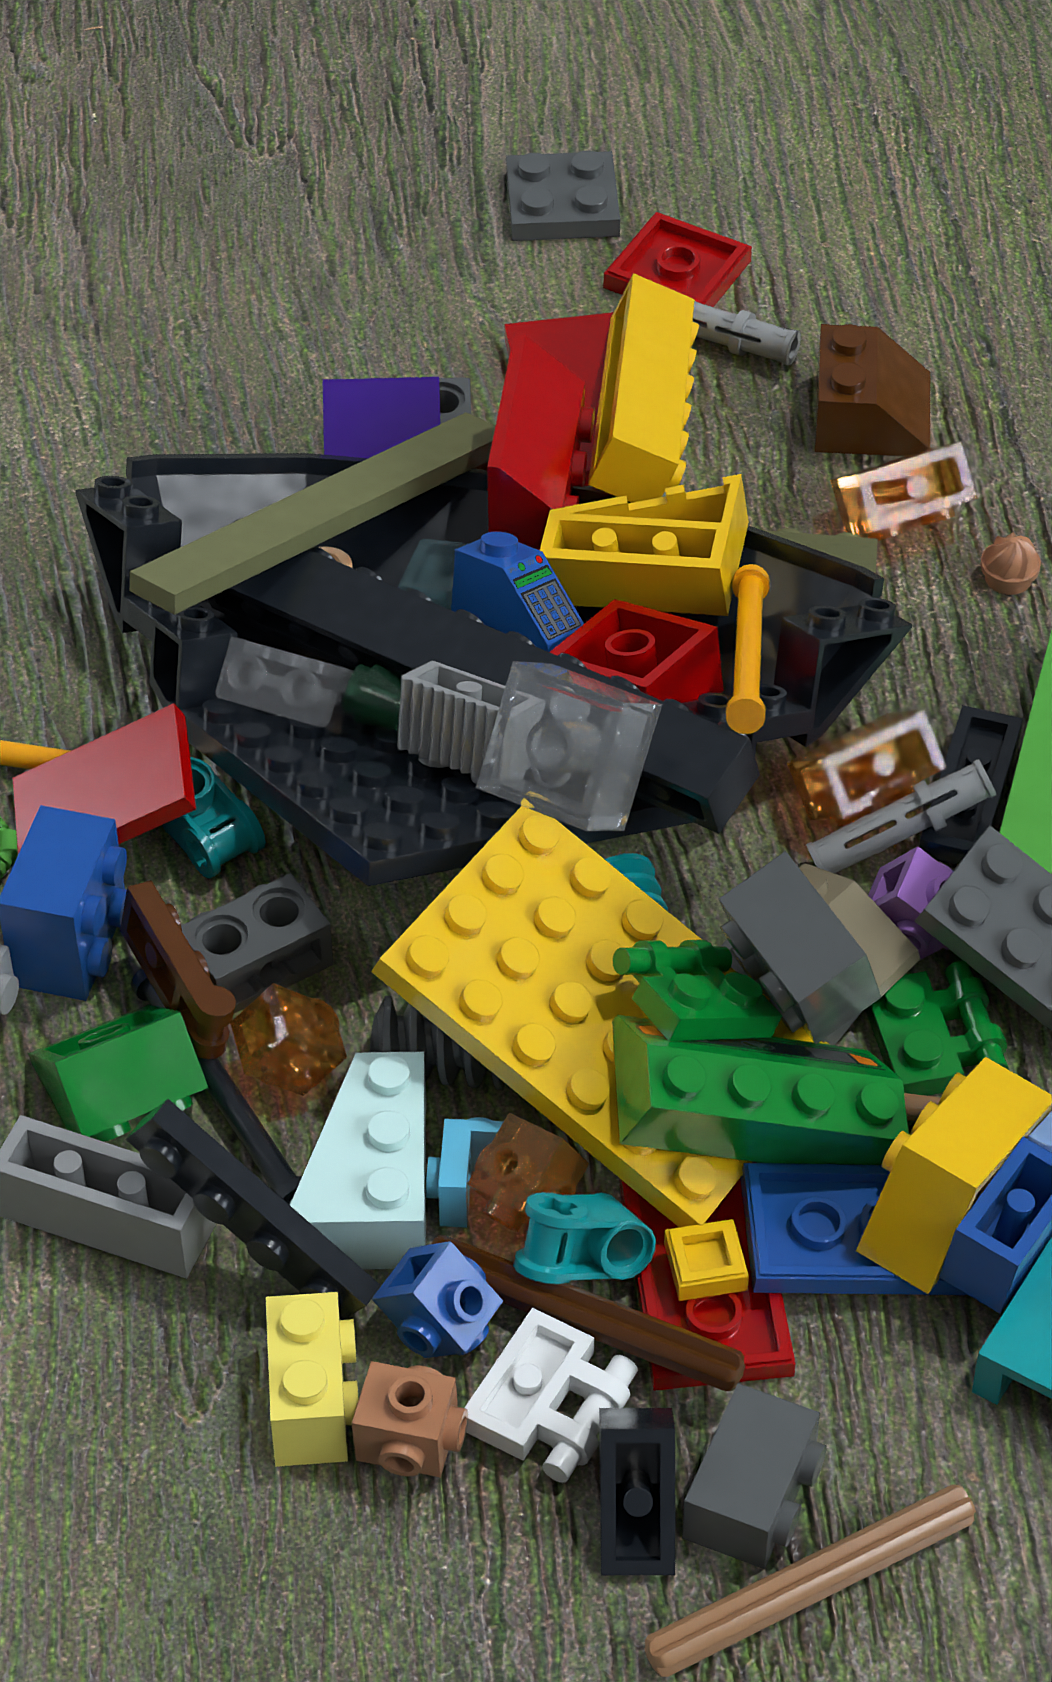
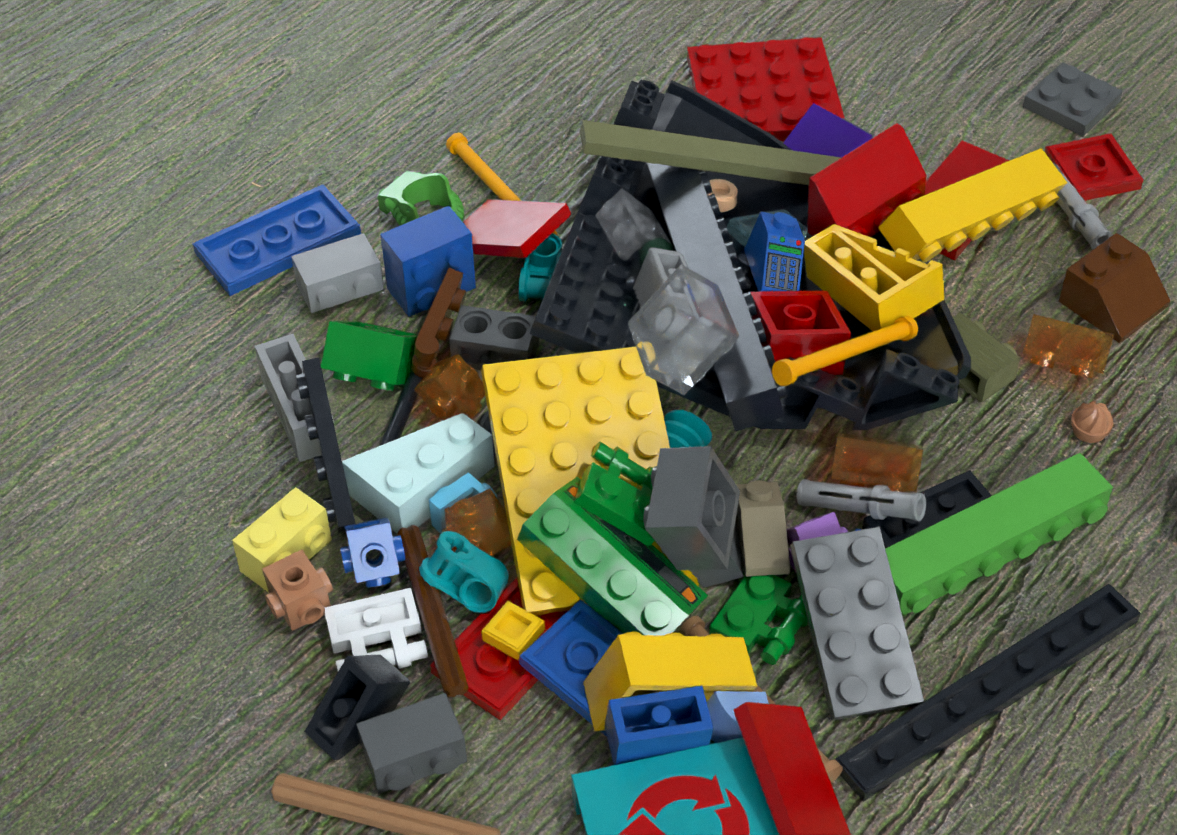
camera: 45 degrees right, 0 degrees up
(184, 389) = (766, 80): none -> red plate

